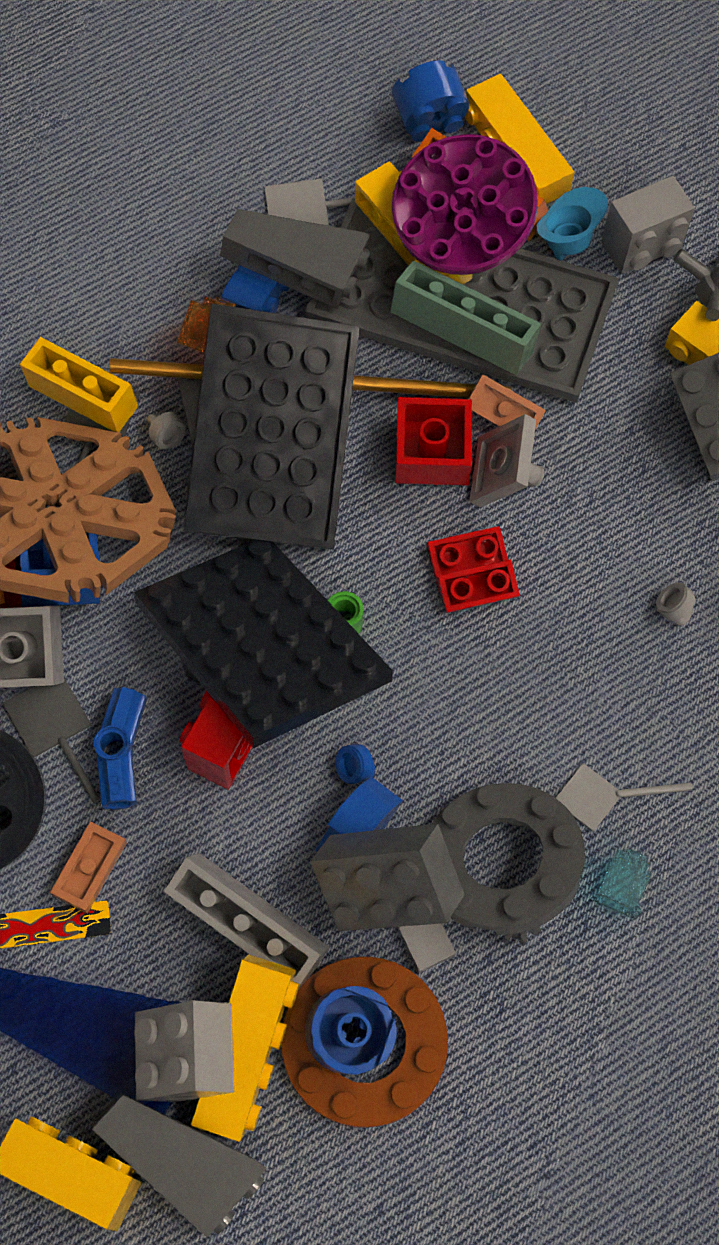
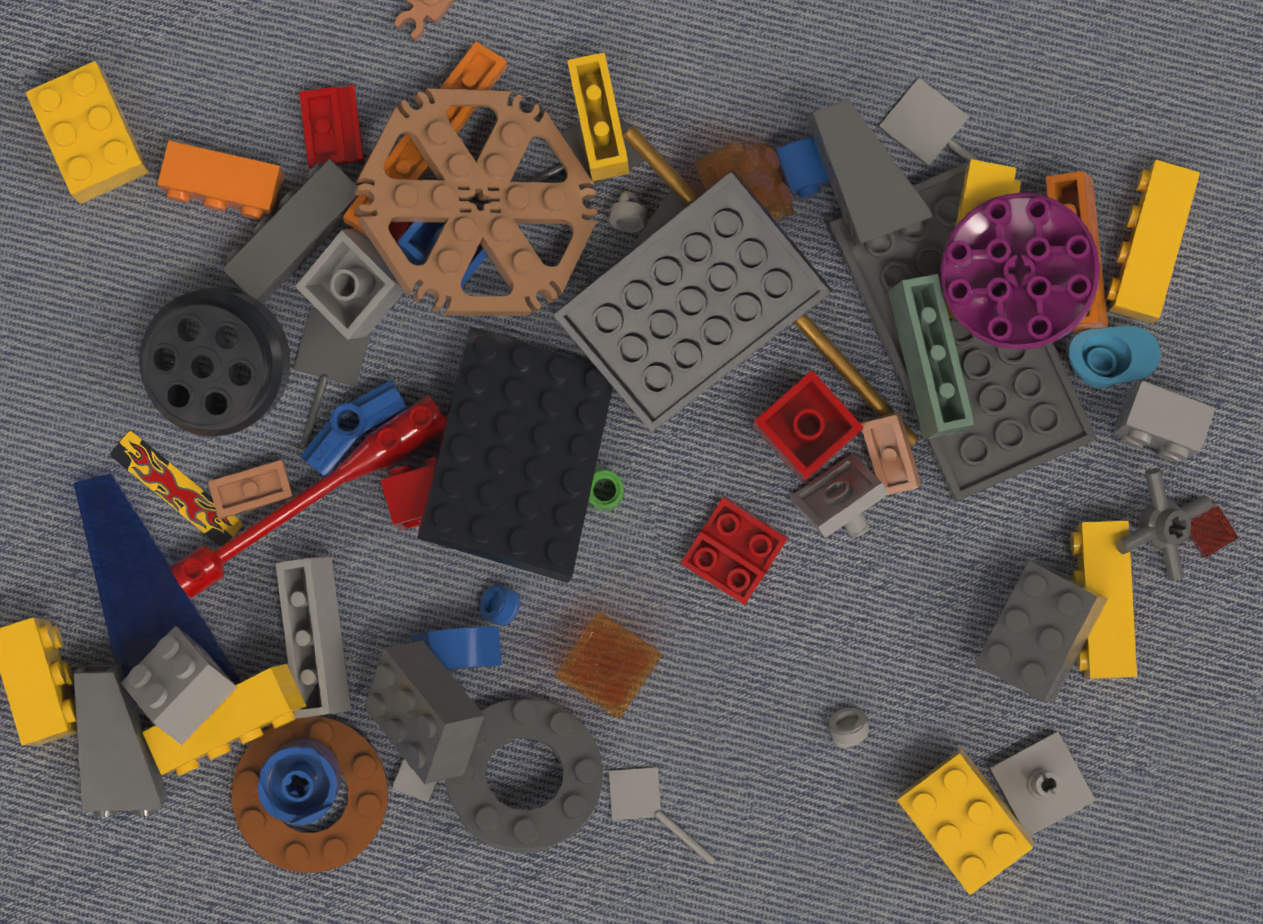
camera: 50 degrees right, 15 degrees up
(155, 743) = (380, 449): none -> red bar
(431, 99) = (1118, 140): blue brick -> none
(477, 722) = (609, 665): none -> clear orange brick
(624, 883) = (589, 876): clear light blue window -> none

